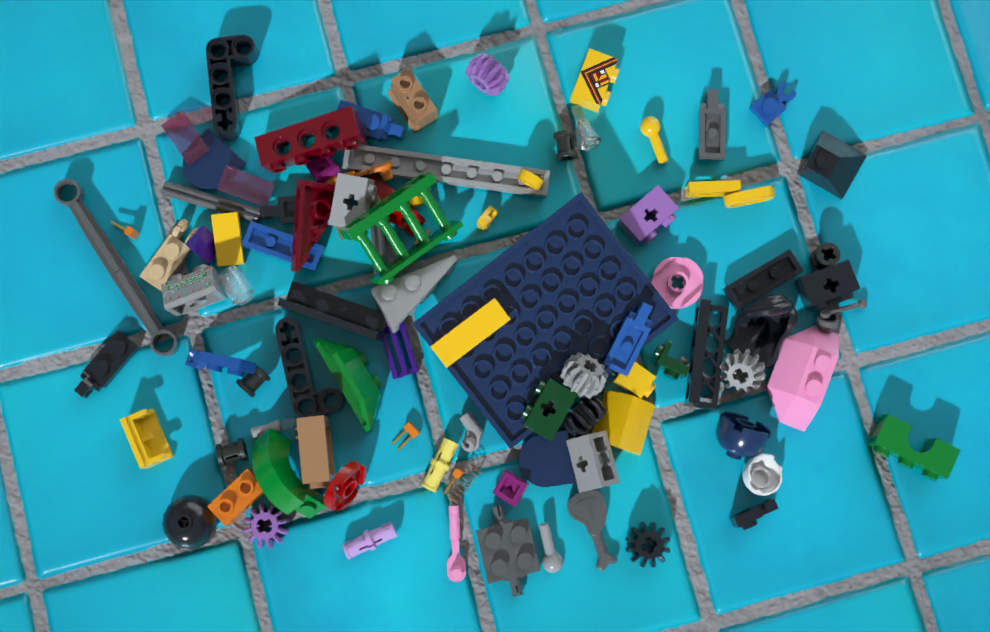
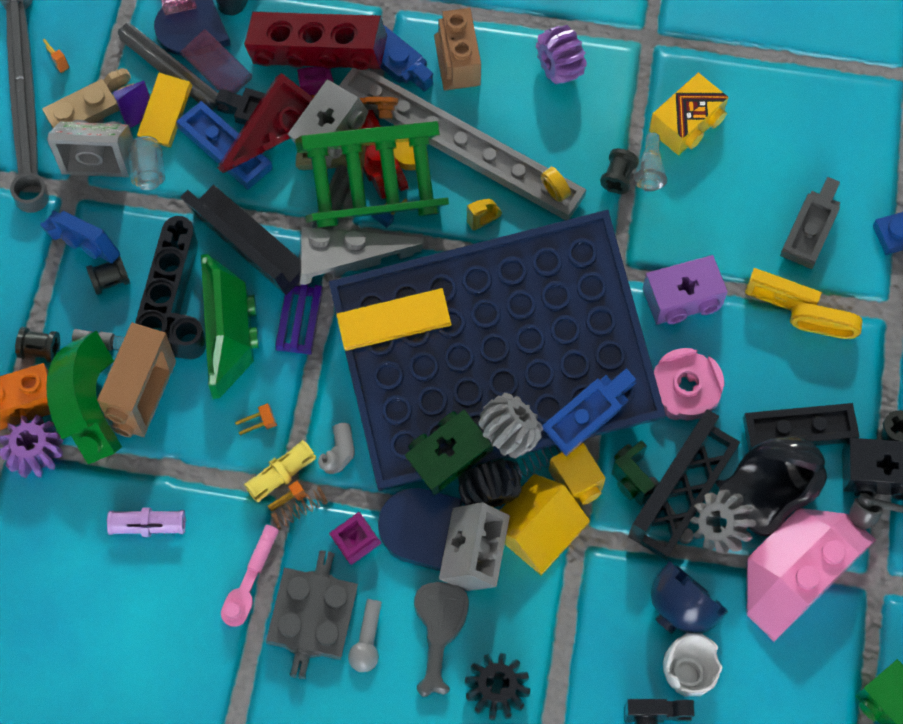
camera: 30 degrees right, 15 degrees down
(343, 486) = (149, 436): red tile -> none
(650, 127) = (735, 193): yellow bar -> none

